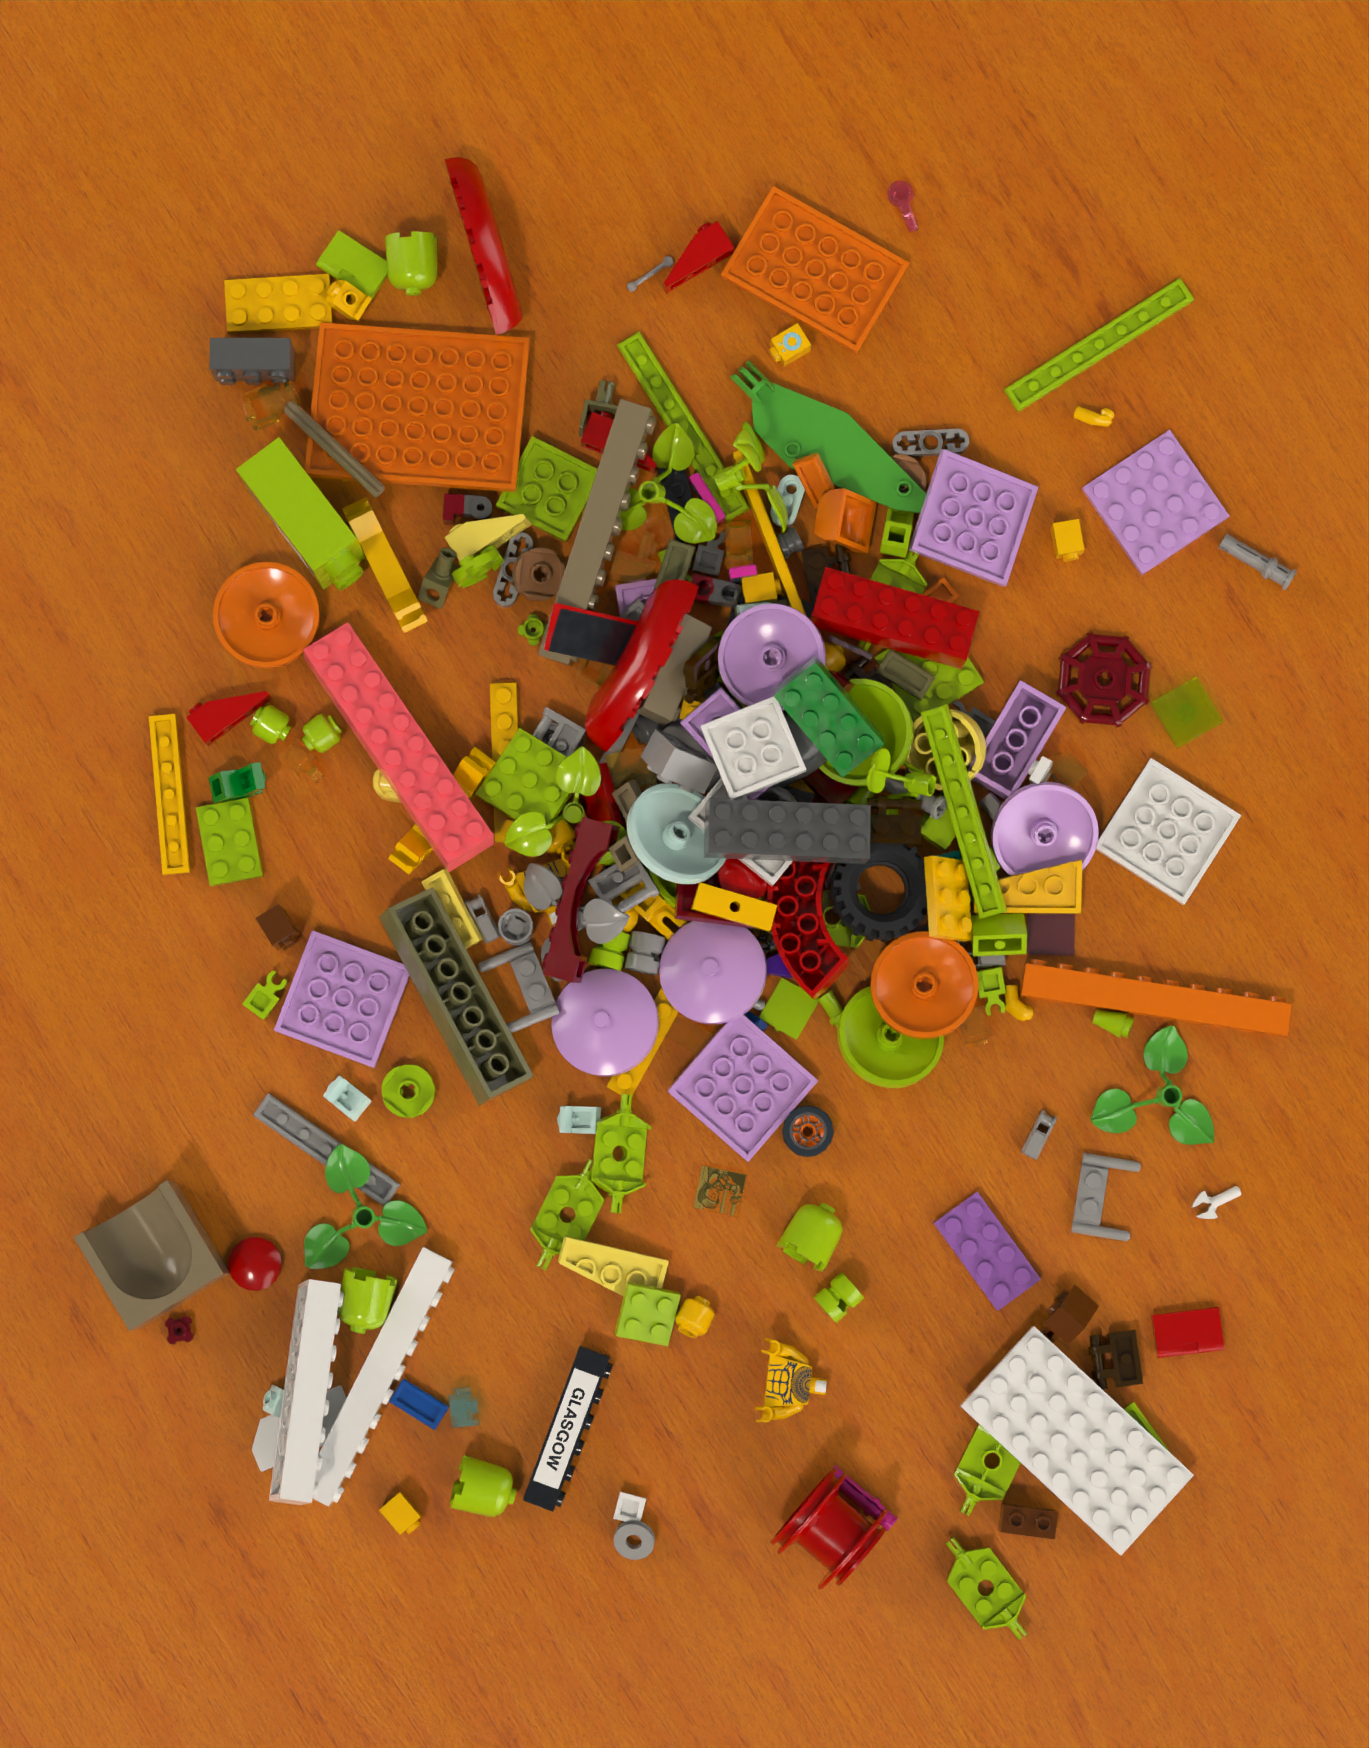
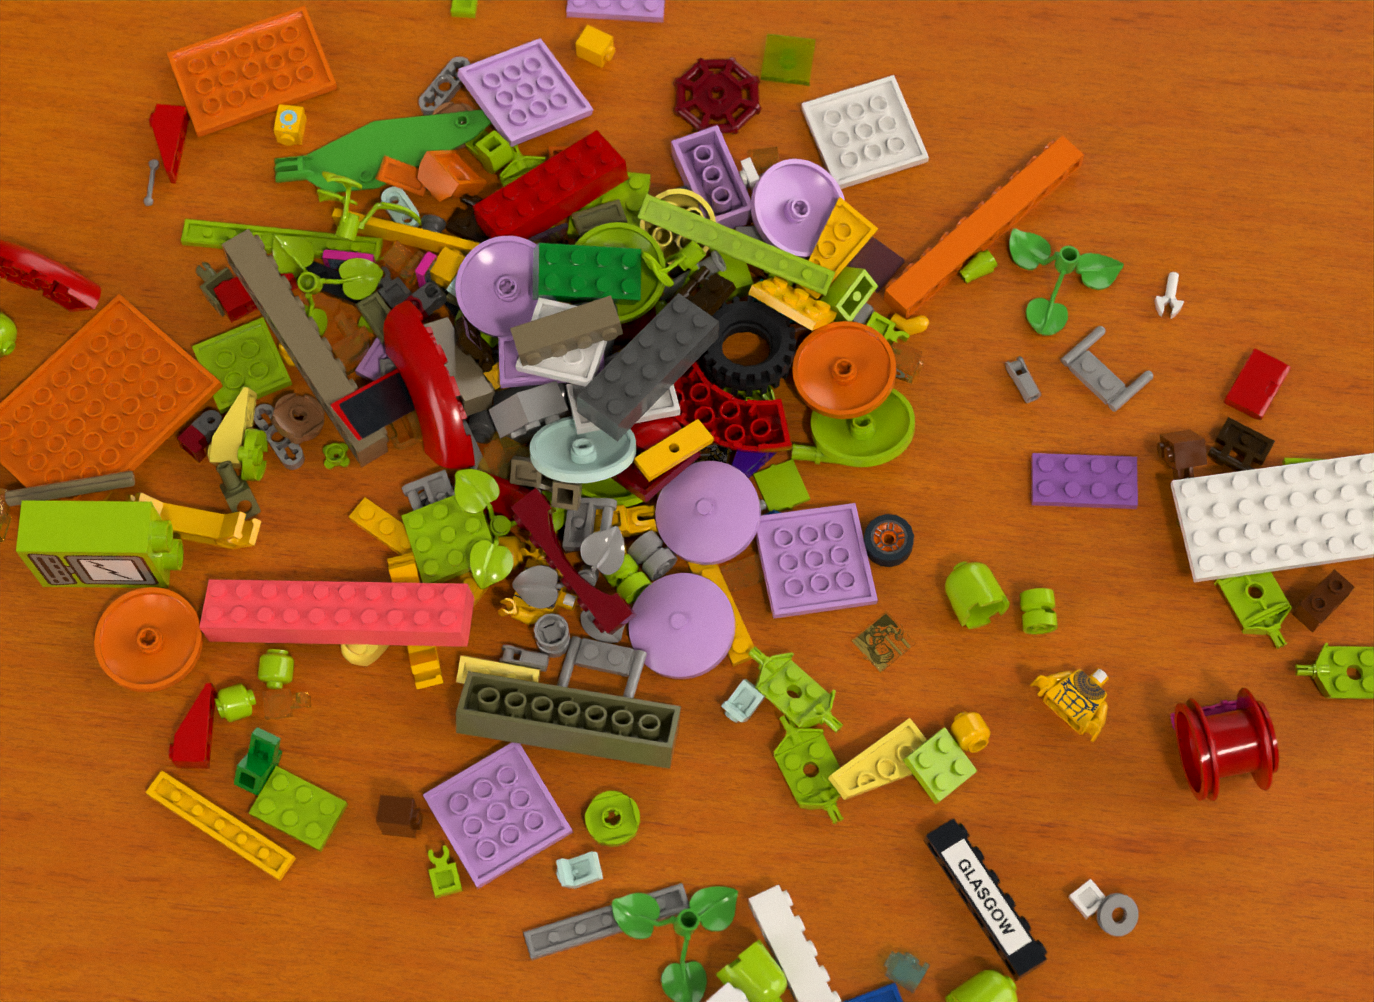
camera: 50 degrees left, 15 degrees down
(757, 745) = (566, 331): none -> dark tan brick

